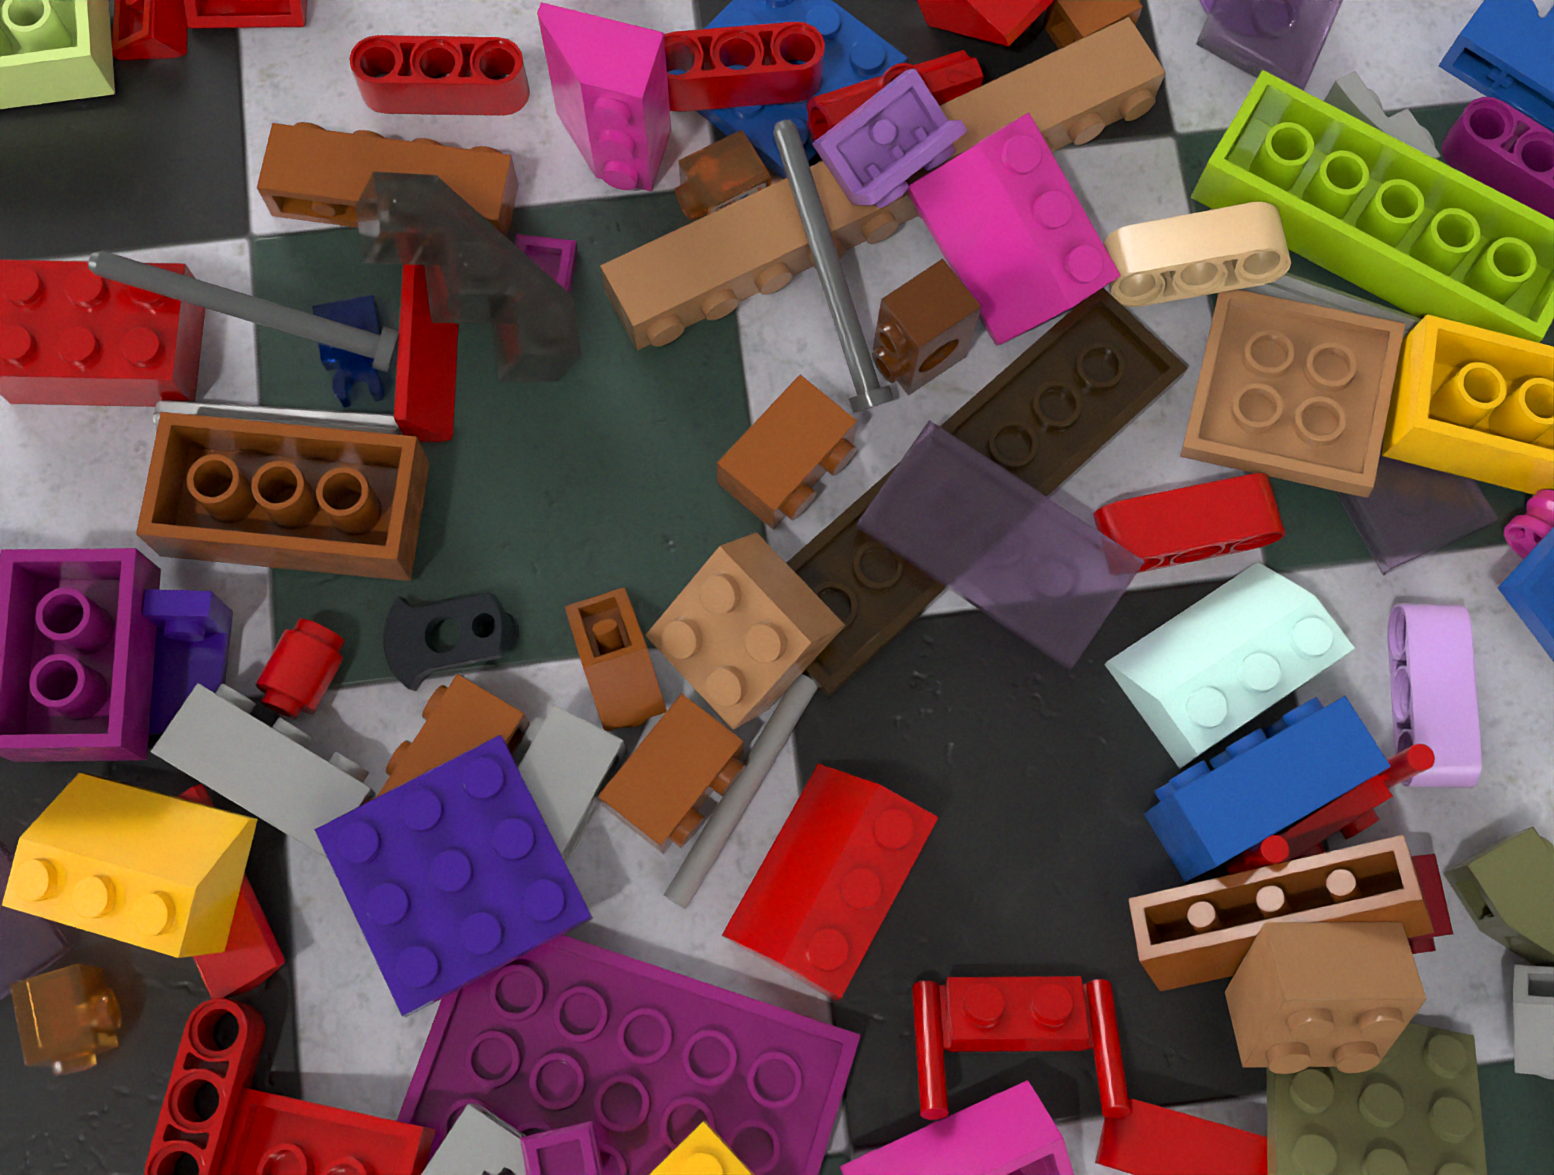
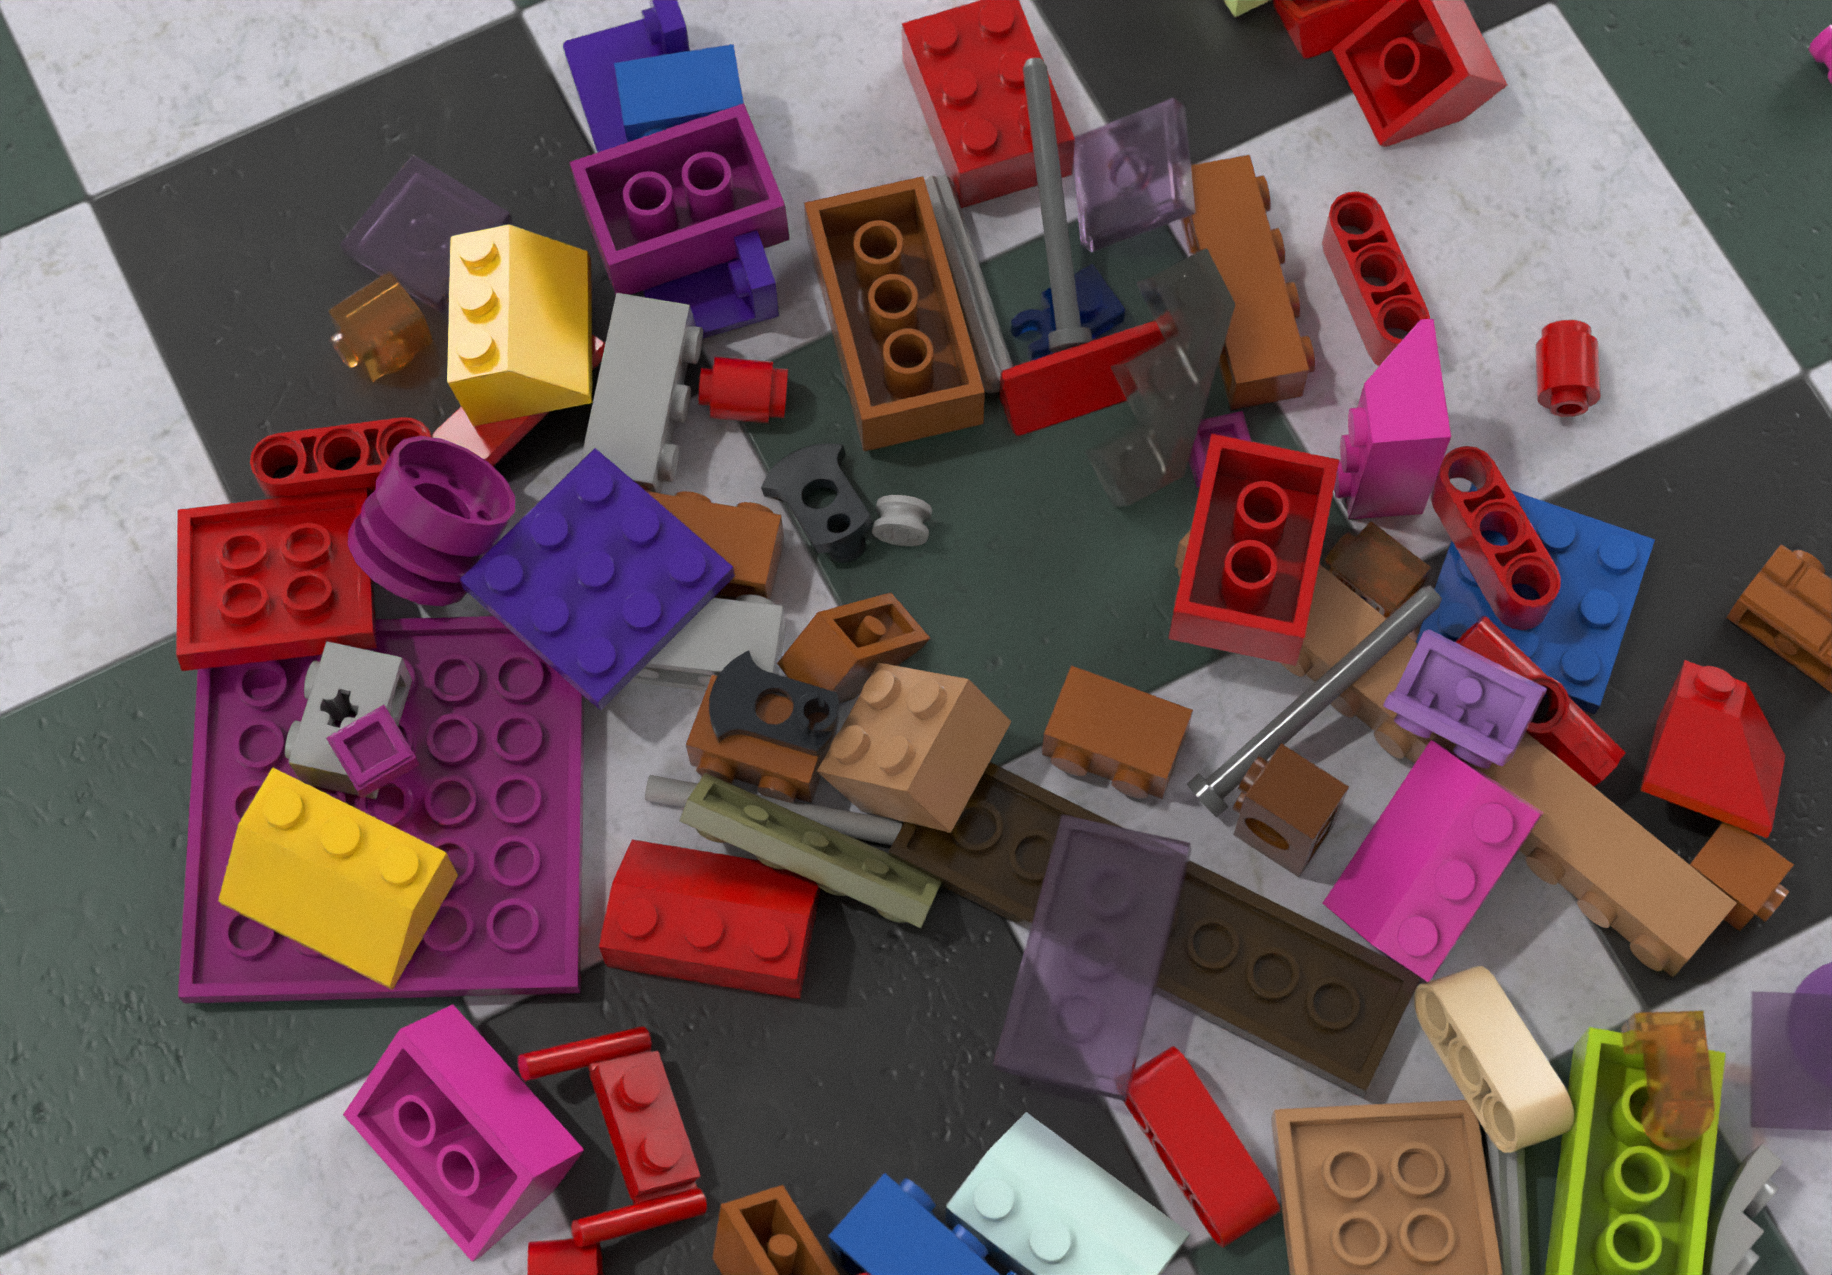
camera: 75 degrees right, 5 degrees down
(243, 230) = (1133, 175): none -> clear purple tile
(321, 1027) = (430, 520): none -> magenta wheel
(500, 568) = (902, 520): none -> light grey bush
(645, 785) = (741, 688): none -> black piece
(681, 253) = (1254, 549): none -> red brick
(802, 766) = (809, 849): none -> olive plate
(1283, 108) = (1676, 1075): none -> clear orange leg

